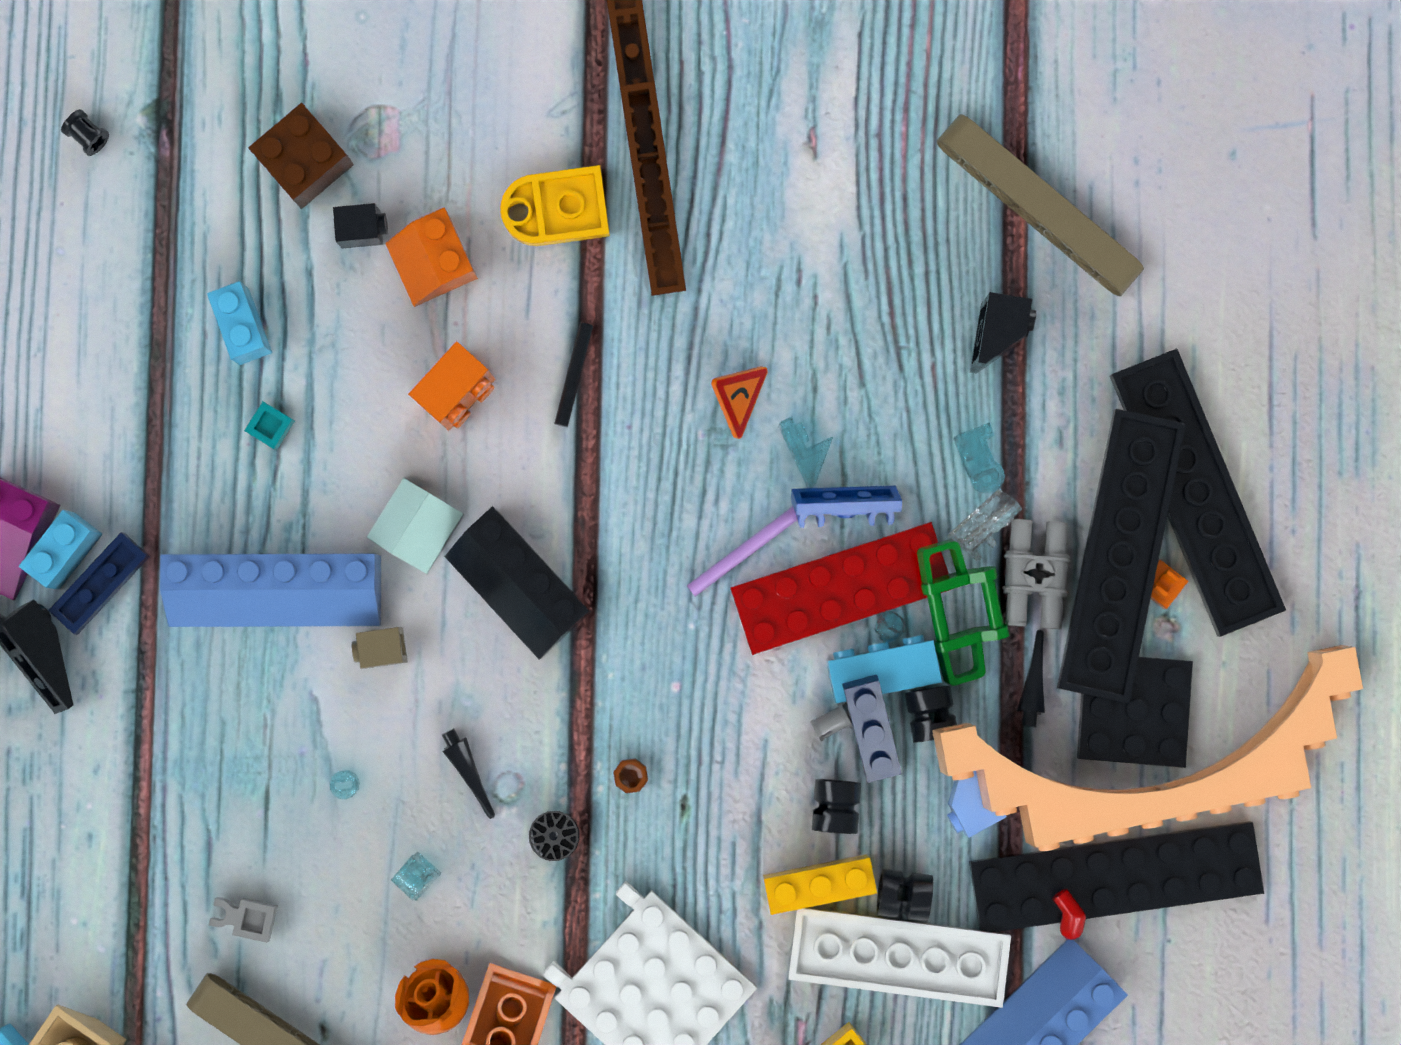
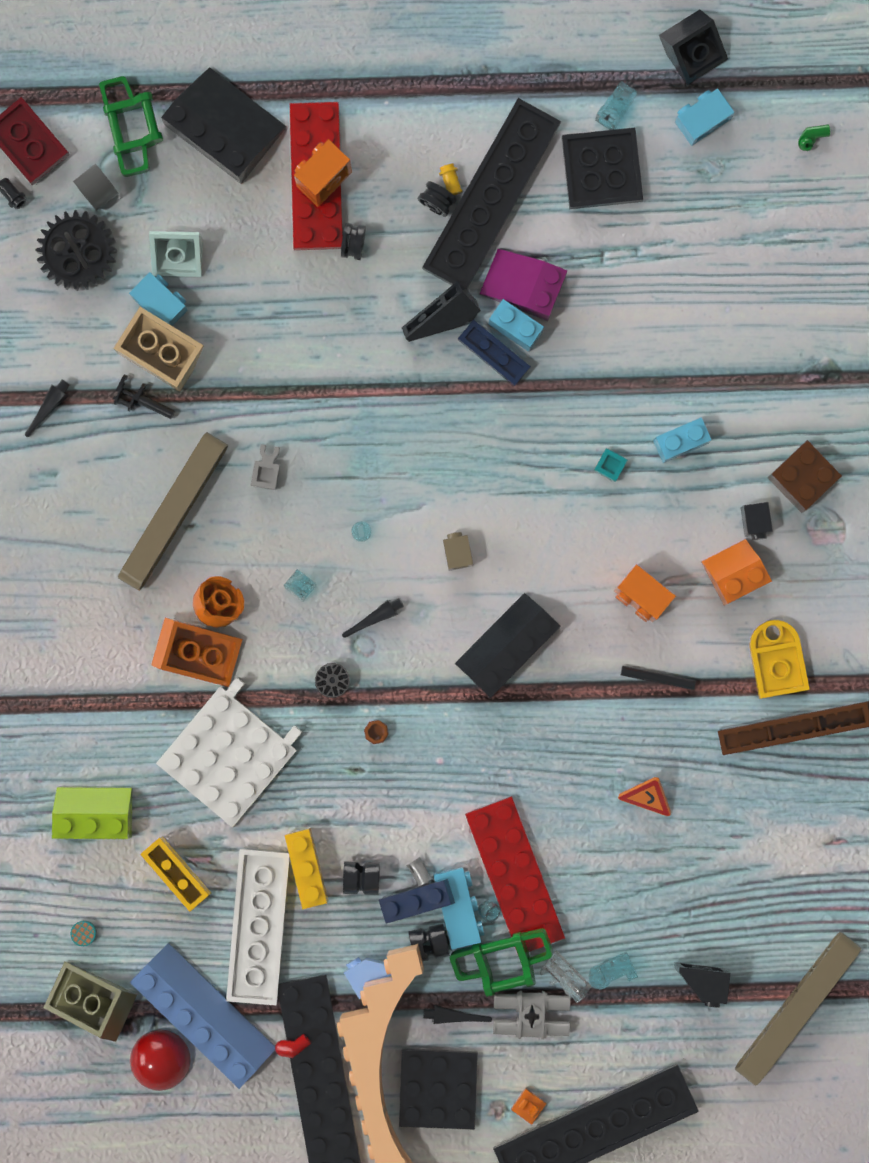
camera: 85 degrees right, 0 degrees up
(85, 132) = (813, 322): black bush -> none
(271, 590) = (494, 474): medium blue slope -> none
(415, 526) = (545, 571): light aqua slope -> none
(742, 552) = (539, 807): lavender bar -> none
(808, 460) = (604, 848): clear light blue slope -> none
(846, 503) = (575, 876): blue plate -> none
(917, 895) = (299, 937): black wheel -> none
(1121, 556) = (547, 1075): black plate -> none

